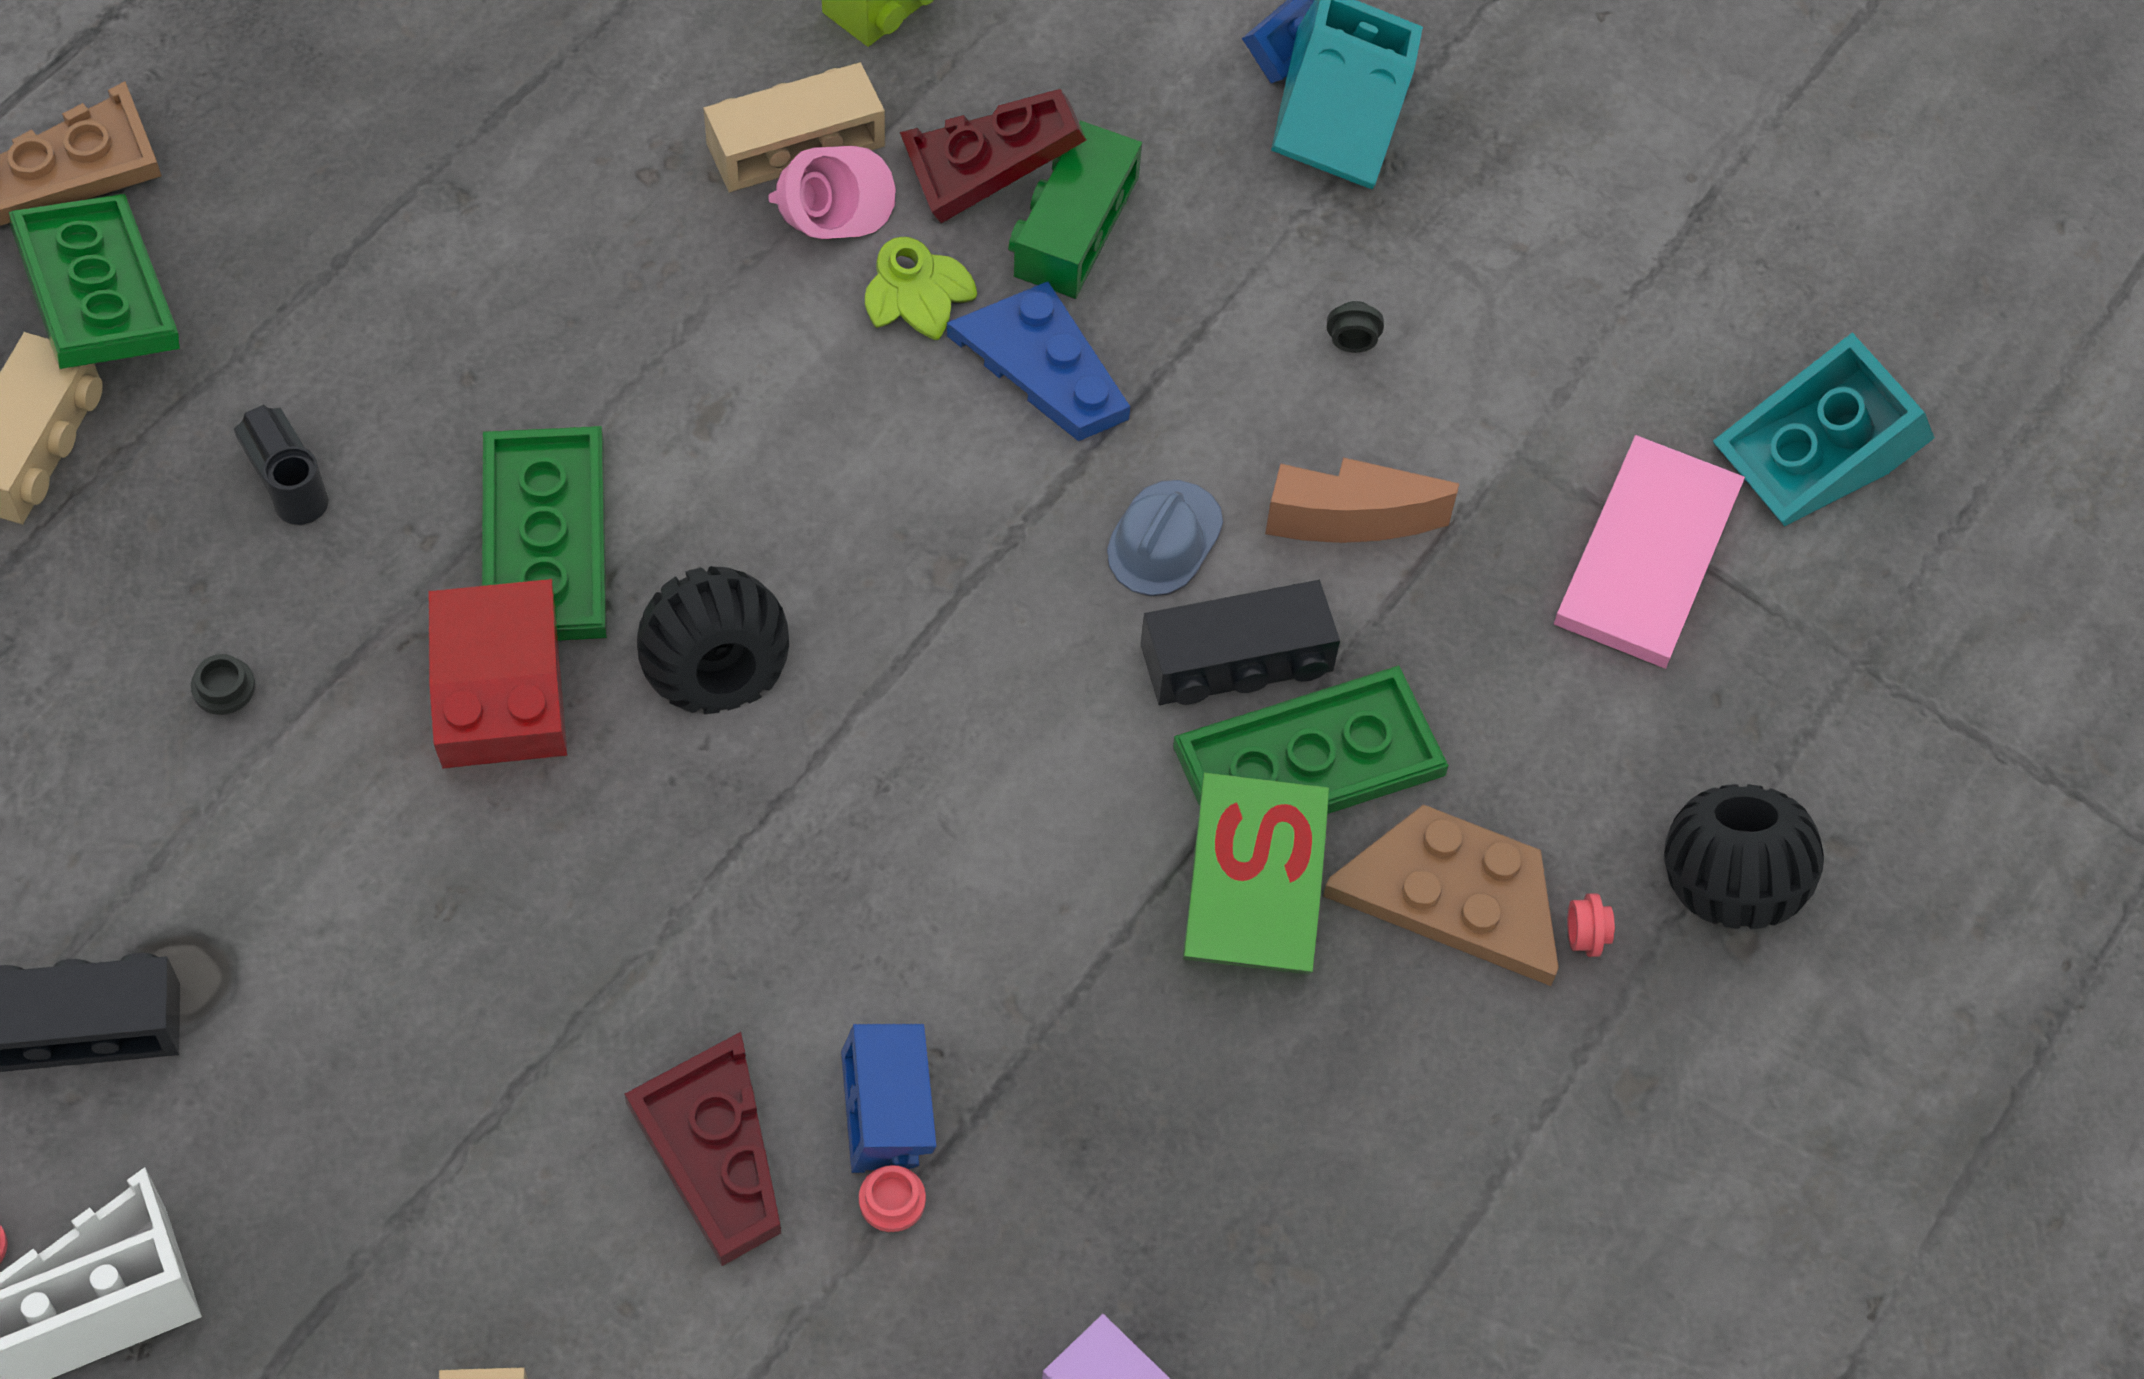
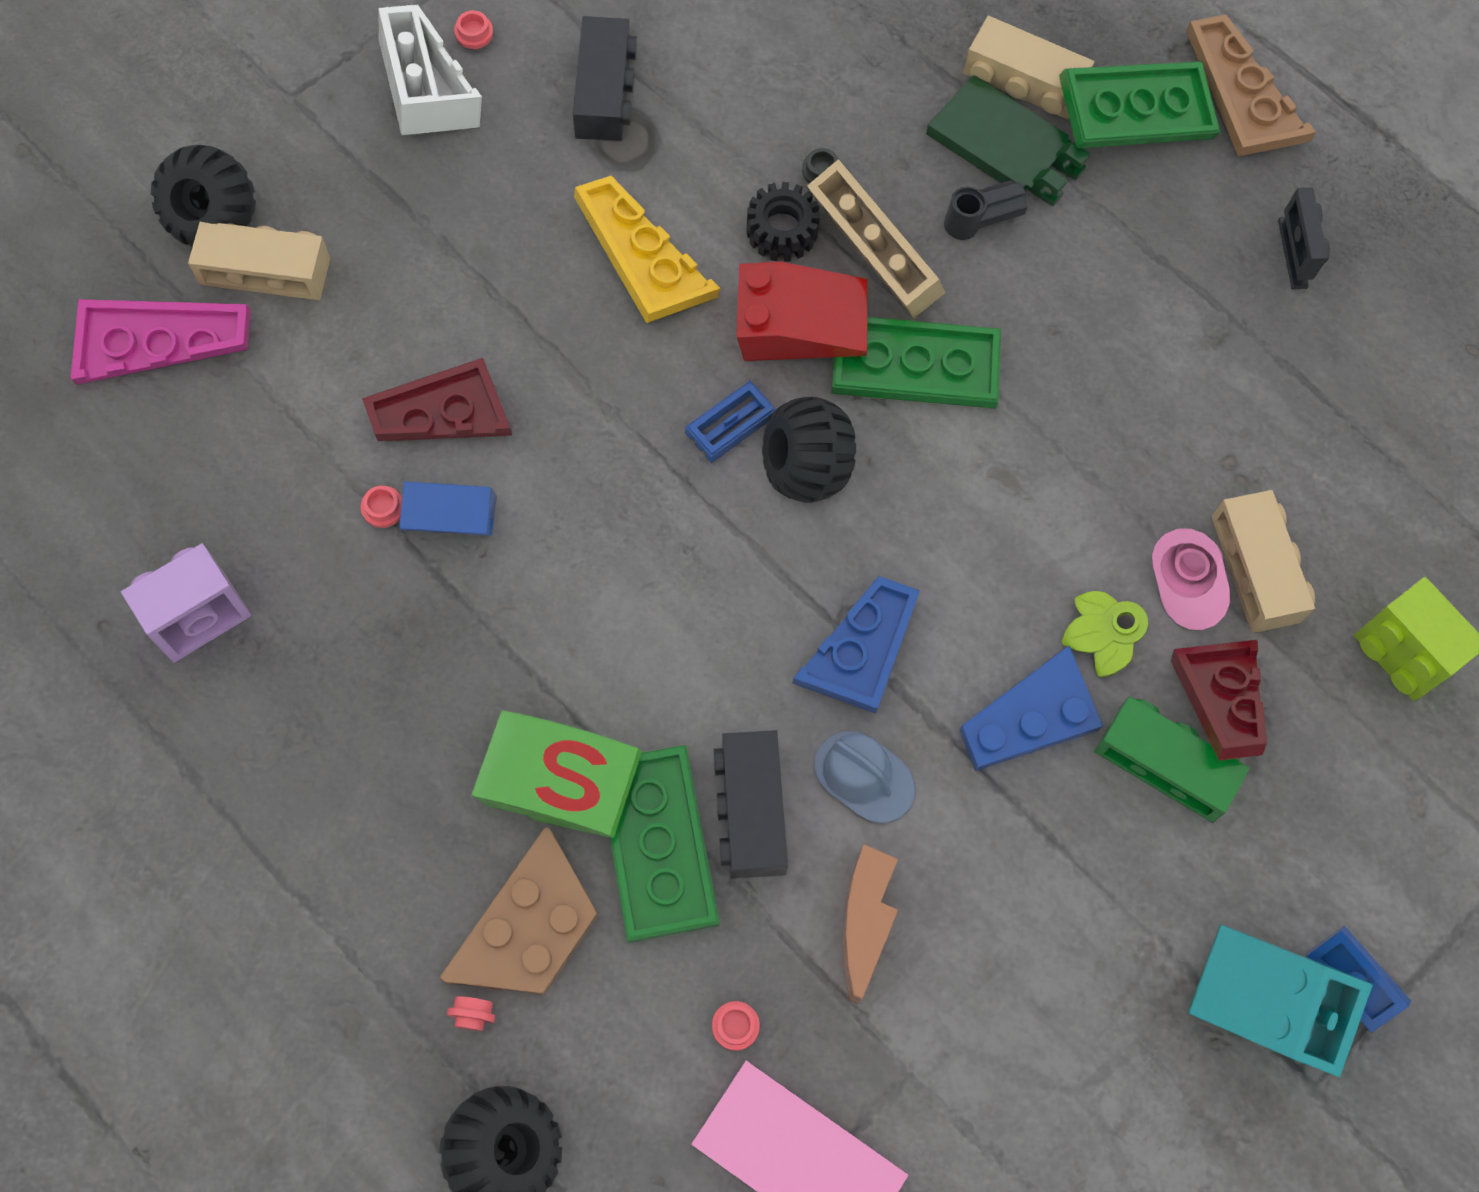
camera: 100 degrees right, 10 degrees up
(152, 451) = (1007, 140): none -> dark green tile
(308, 89) = (1303, 238): none -> black plate
(321, 692) = (782, 202): none -> black tyre
(359, 584) = (876, 239): none -> tan brick
(417, 899) = (642, 254): none -> yellow wing
(709, 785) = (704, 442): none -> blue tile
(993, 545) = (862, 650): none -> blue wing
(1355, 326) = (1038, 958): pearl dark grey plate -> none
(1517, 632) = (735, 1025): none -> coral plate

